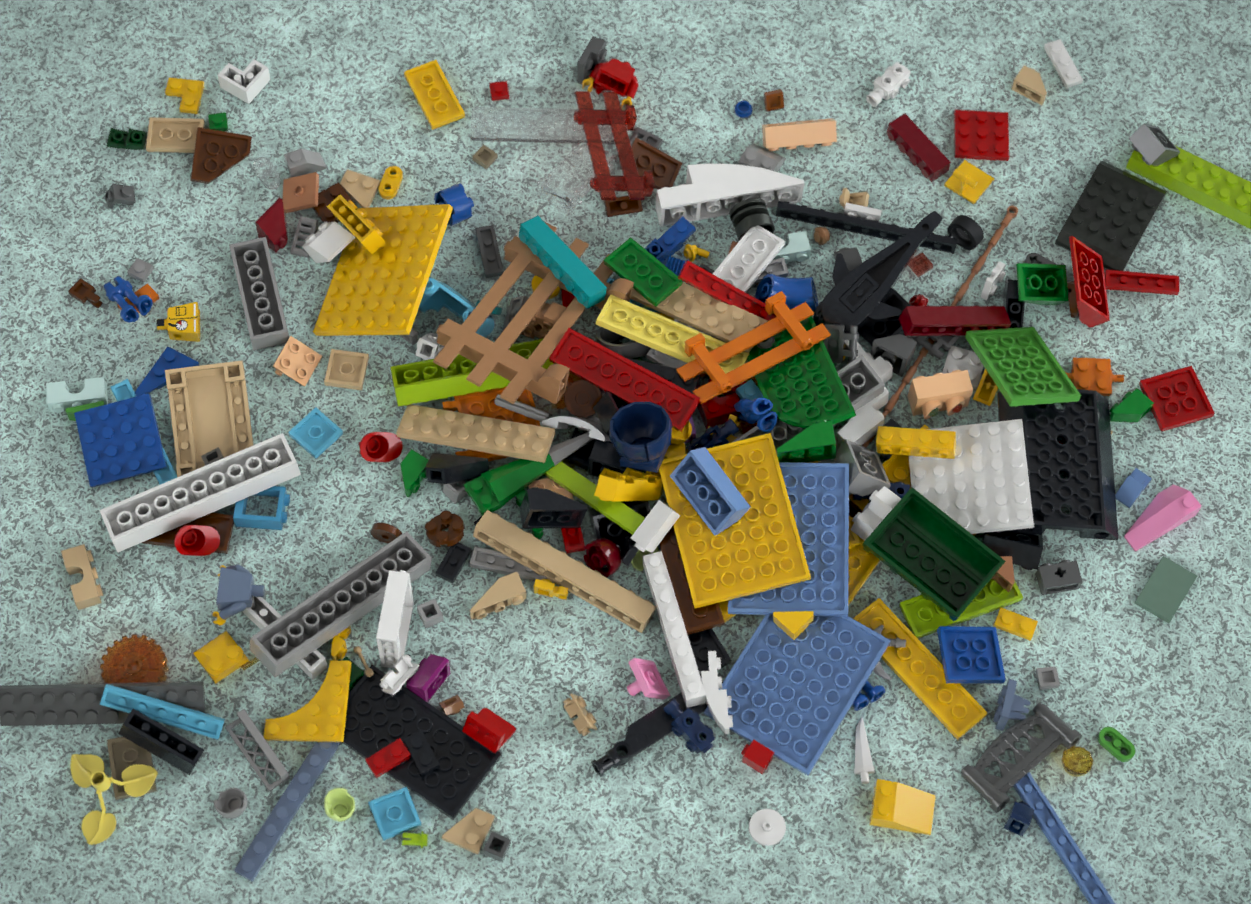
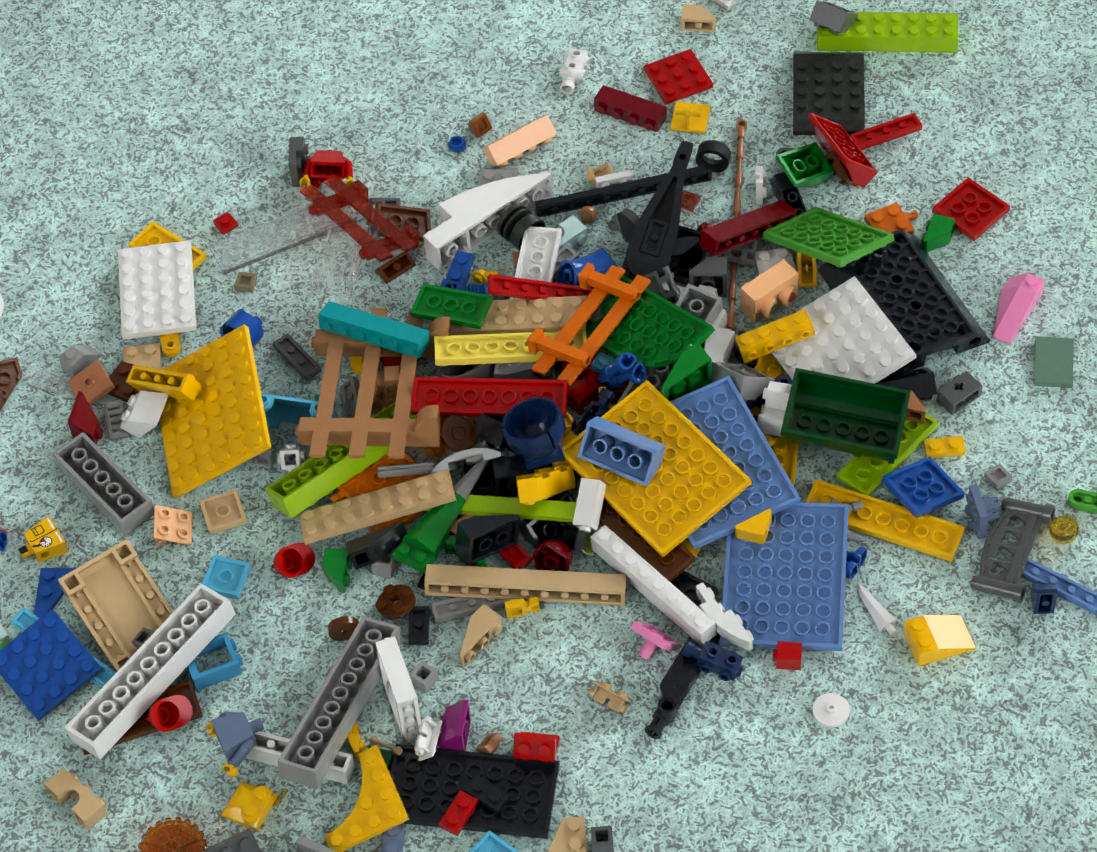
camera: 20 degrees left, 10 degrees down
(403, 128) = (156, 290): none -> white plate
(1132, 487) = (977, 295): medium blue slope -> none

